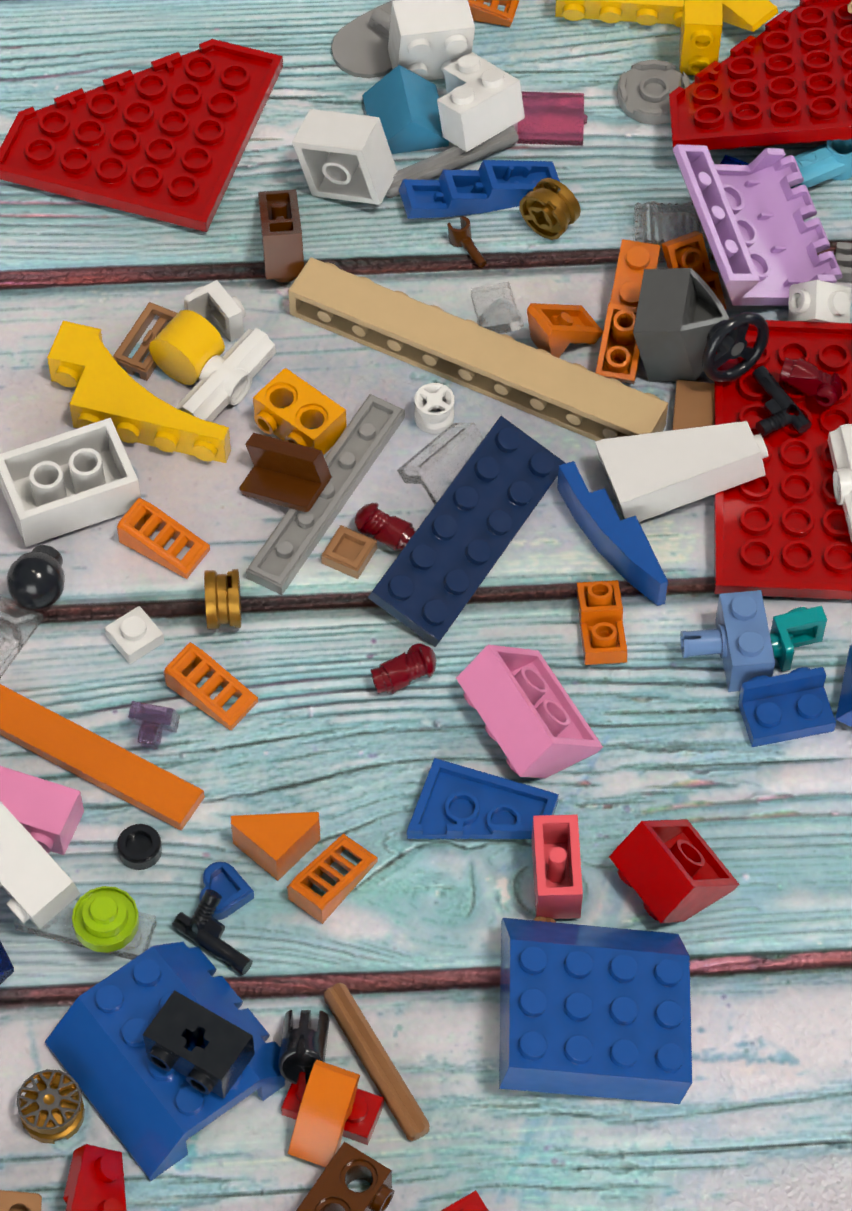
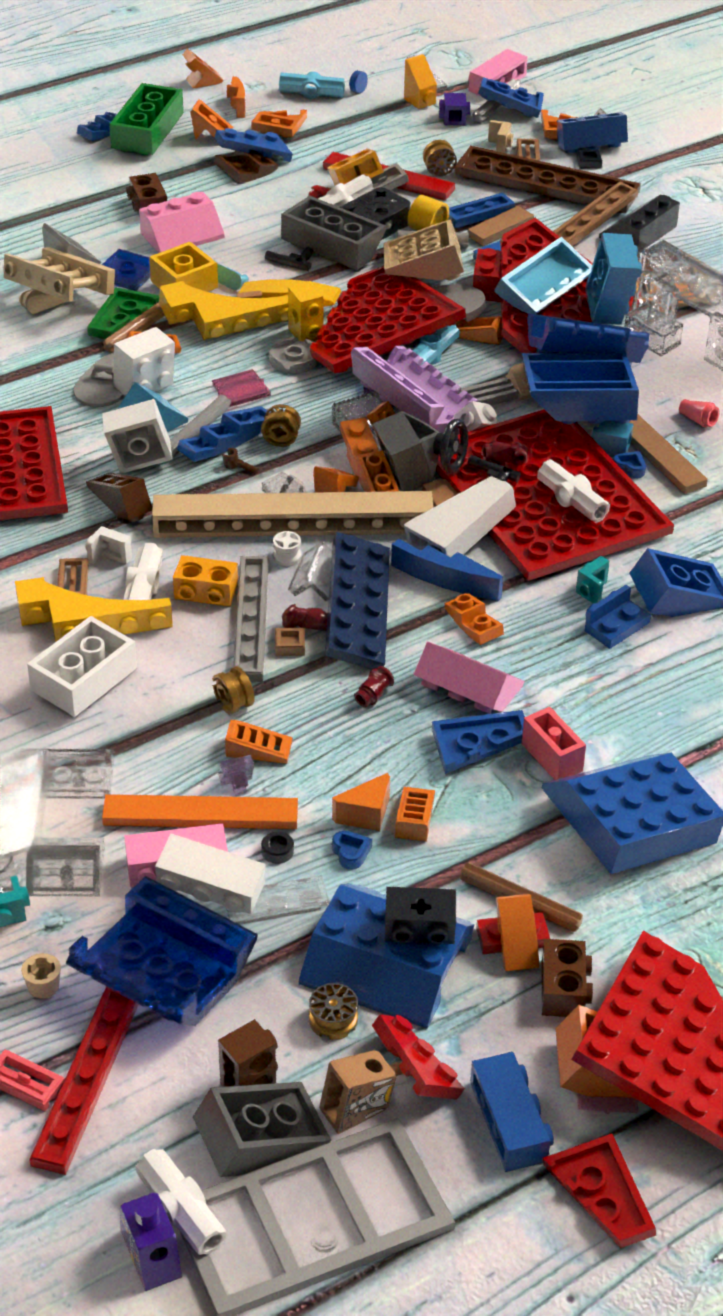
camera: 30 degrees left, 15 degrees down
(37, 578) = (100, 726): black piece -> none
(105, 919) = (295, 885): lime plate -> none
(134, 634) = (185, 736): white plate -> none
(142, 521) = (154, 675): orange slope -> none
(186, 346) = (106, 569): yellow piece -> none
(210, 933) = (362, 872): black hose -> none
(285, 473) = (220, 611): reddish brown panel -> none
(302, 1045) = (475, 903): black arm -> none
(478, 101) = (196, 385): white brick -> none
(672, 869) = (618, 722): red slope -> none
(740, 638) = (565, 592): medium blue brick -> none

